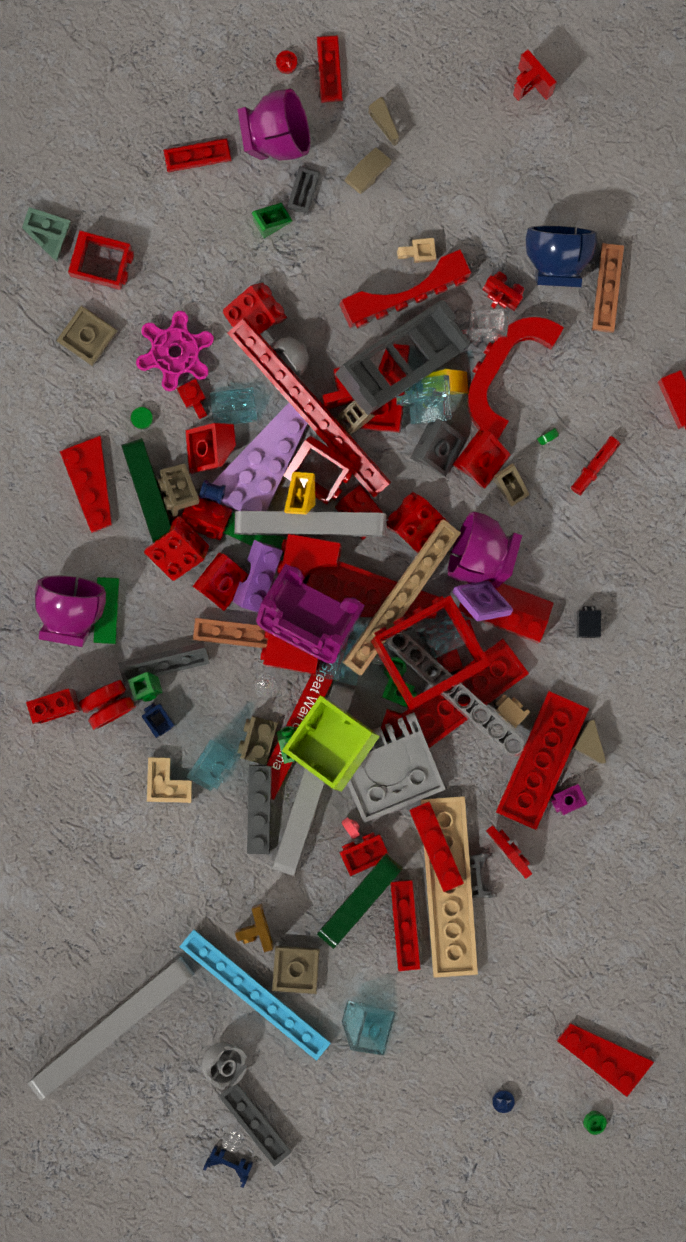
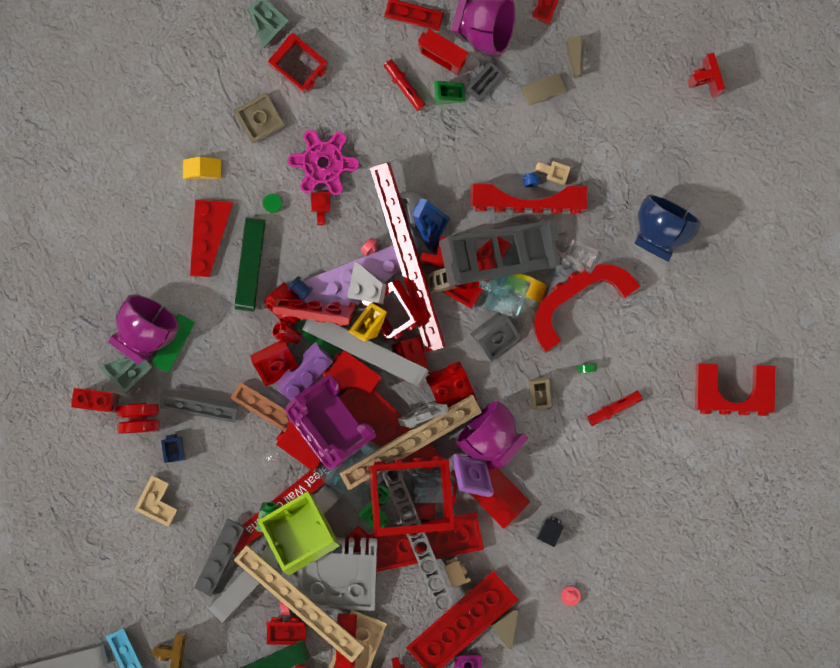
camera: 25 degrees right, 0 degrees up
(51, 415) = (202, 168): none -> yellow slope
(71, 663) = (126, 372): none -> sand green wing
(145, 687) = (175, 418): green brick -> none
(177, 488) = (274, 272): dark tan bracket -> none
(178, 550) = (251, 321): red bracket -> none
(209, 446) = (315, 251): red slope -> none
(211, 765) = (197, 505): clear light blue slope -> none
(212, 227) = (399, 78): none -> red pin
(219, 545) = (284, 332): none -> red cone
(234, 406) = (349, 228): clear light blue bracket -> none
(239, 506) = (315, 310): none -> red wing
(245, 178) = (442, 51): none -> red window
(257, 307) = (404, 158): red bracket -> none
(258, 740) = (244, 502): dark tan bracket -> none
(264, 416) = (369, 247): none -> coral tile
(279, 457) = (365, 285): none -> light grey wing
(316, 361) = (430, 222): none -> blue wing
(365, 817) = (299, 603): none -> tan plate
(399, 269) = (531, 179): none -> blue plate
(401, 562) = (423, 414): none -> light grey wing
(482, 458) = (526, 360): red bracket -> none
(501, 293) = (603, 236): red hips -> none
(607, 288) = (690, 271): nougat plate -> none
(640, 680) = (570, 596): none -> coral tile

